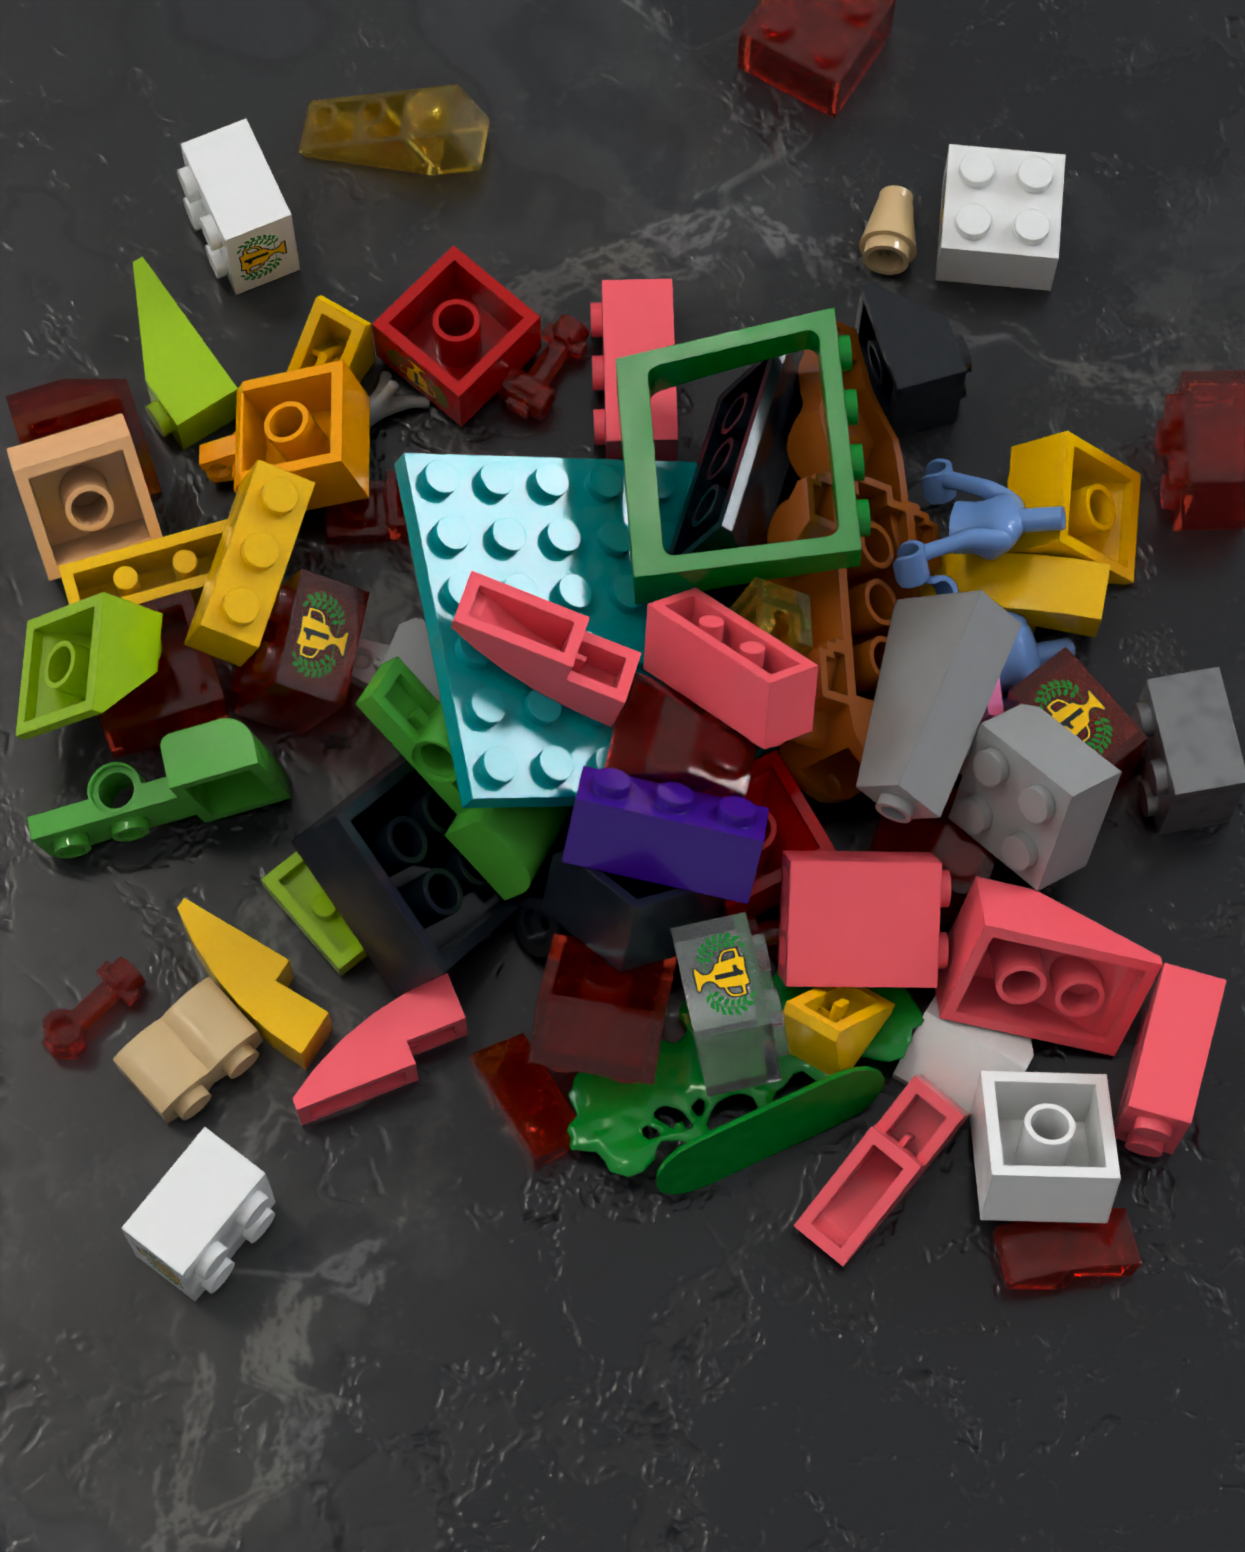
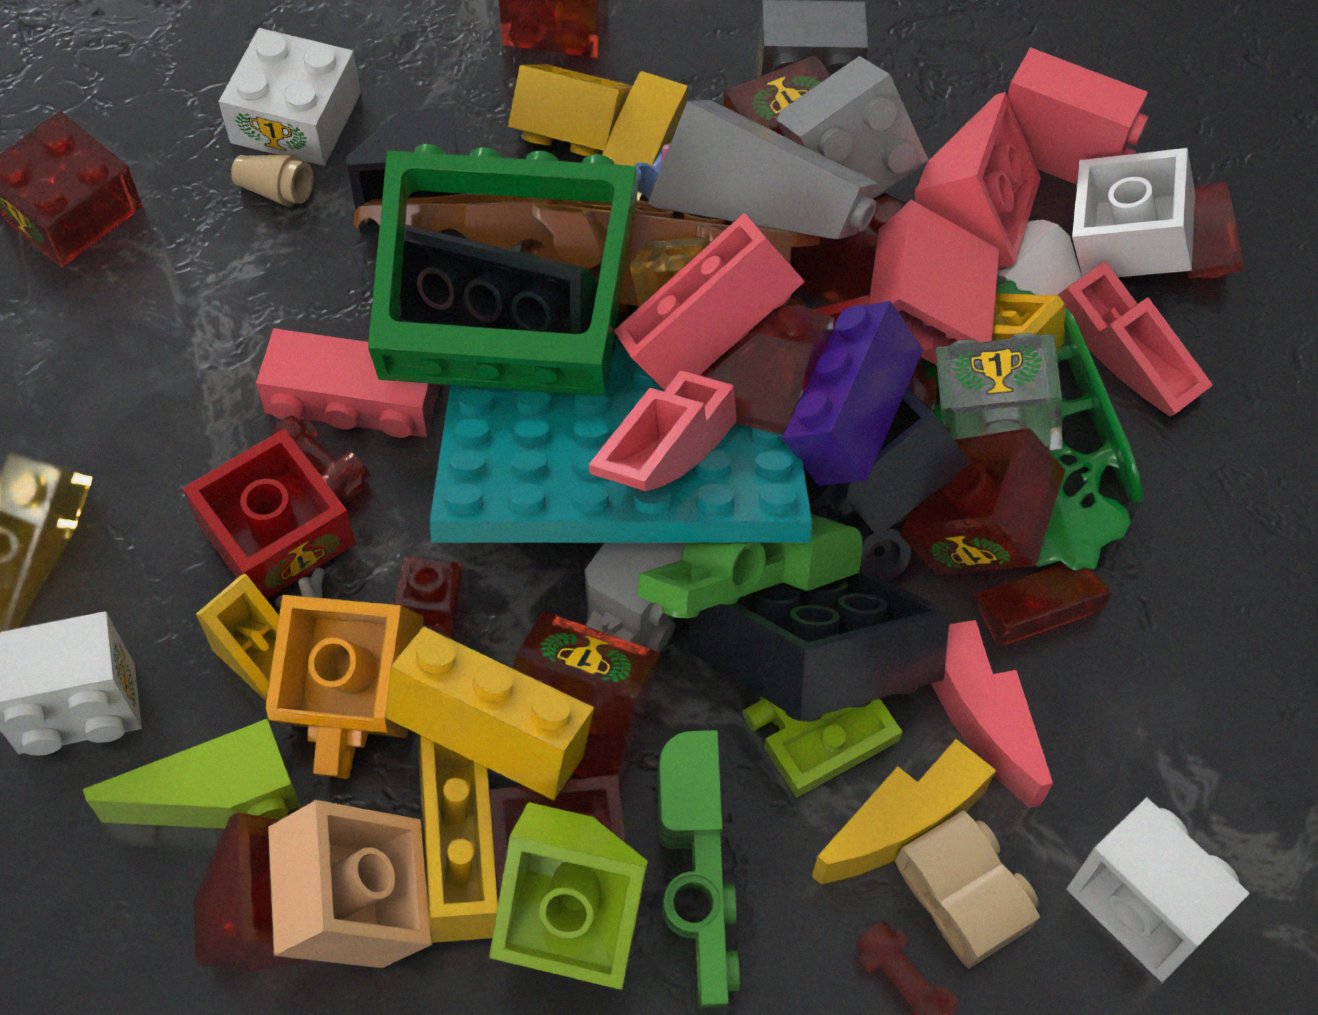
camera: 80 degrees left, 10 degrees down
(977, 528) = (587, 129): medium blue piece -> none

